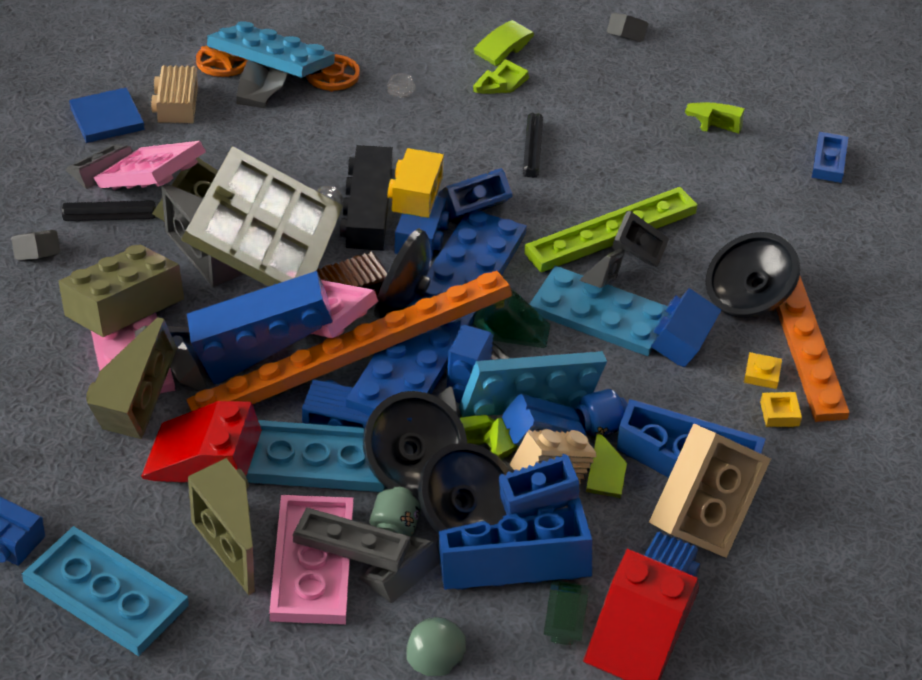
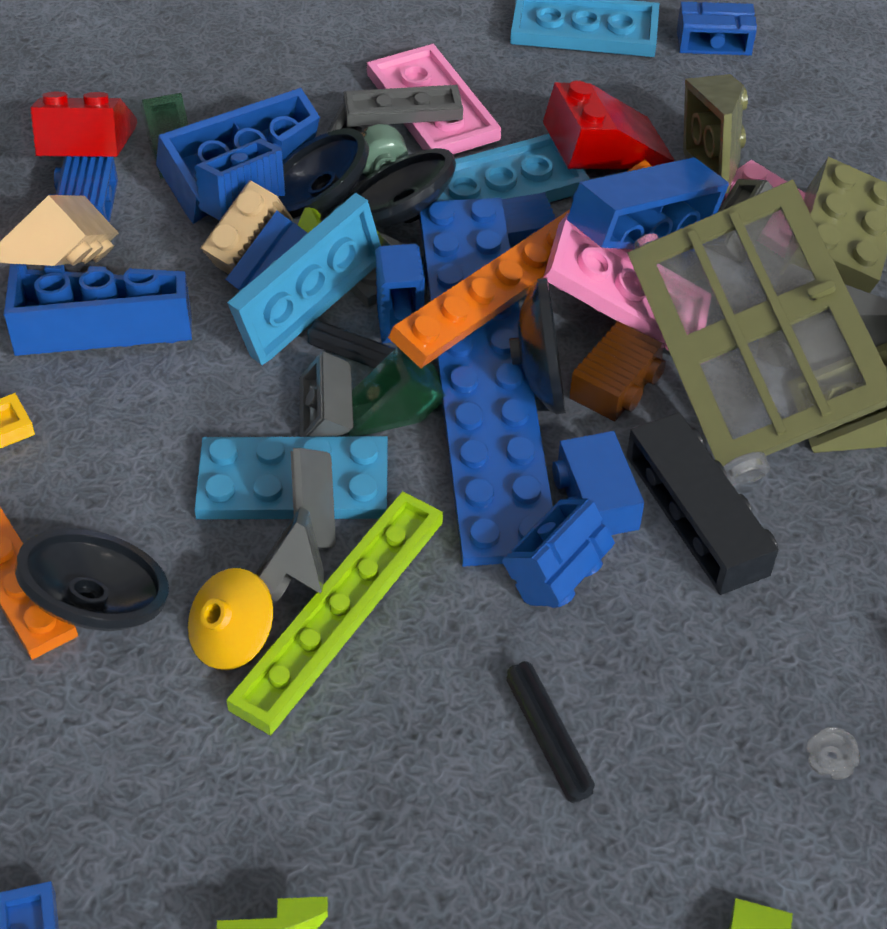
camera: 155 degrees right, 5 degrees up
(222, 517) = (516, 65): olive slope -> none
(416, 182) = (635, 486): yellow brick -> none
(435, 646) = (273, 76): sand green hair -> none
(503, 80) = (692, 866): lime slope -> none
(557, 335) = (326, 397): none -> dark grey slope
(601, 412) = (214, 324): blue head -> none
(607, 470) = (197, 275): lime slope -> none
(679, 236) = (230, 619): none -> yellow dish
(685, 328) = (162, 468): blue brick -> none
(763, 370) = (42, 476): yellow plate -> none

